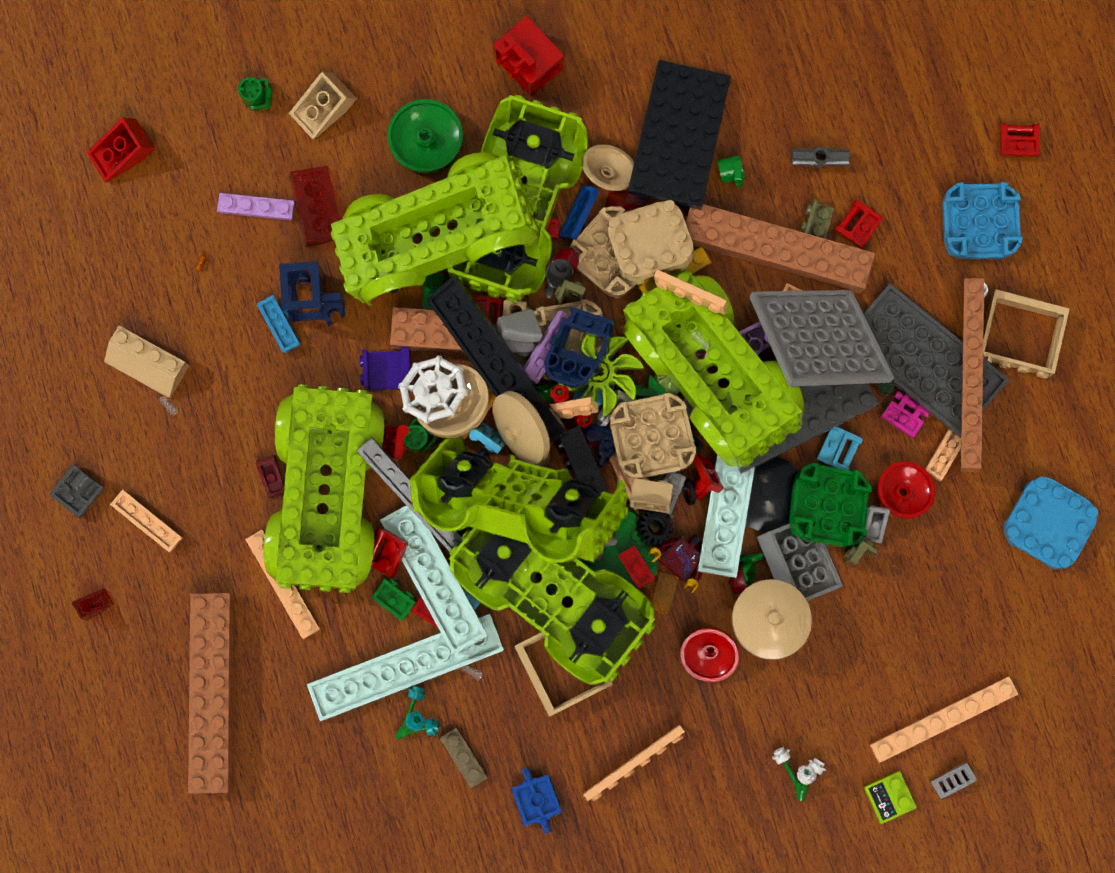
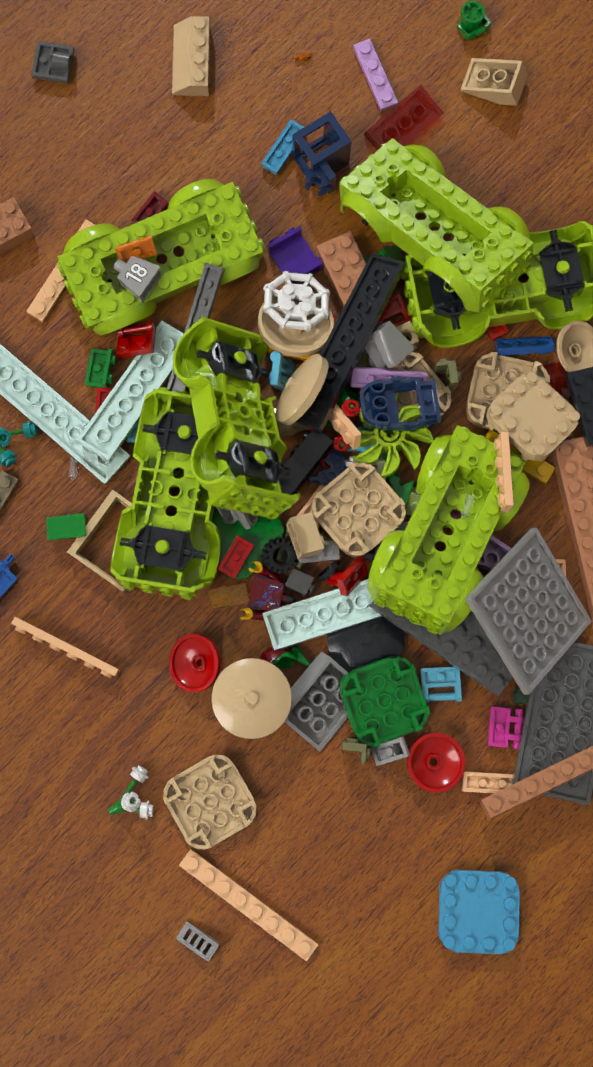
camera: 60 degrees right, 0 degrees up
(146, 521) = (57, 131): light nougat plate -> none
(171, 409) = (163, 101): clear piece -> none
(310, 513) = (140, 248): none -> orange tile
(336, 518) = (138, 276): none -> light grey torso
(395, 447) = (229, 296): red plate -> none
(417, 438) = (247, 313): green piece -> none
(425, 136) = (516, 178): green dish -> none
(526, 705) = (66, 526): none -> green panel
(560, 268) = (466, 353): dark grey hair -> none
(686, 523) = (300, 582): none -> dark grey brick
(837, 705) = (209, 801): none -> tan plate
(889, 797) = (153, 891): lime plate -> none

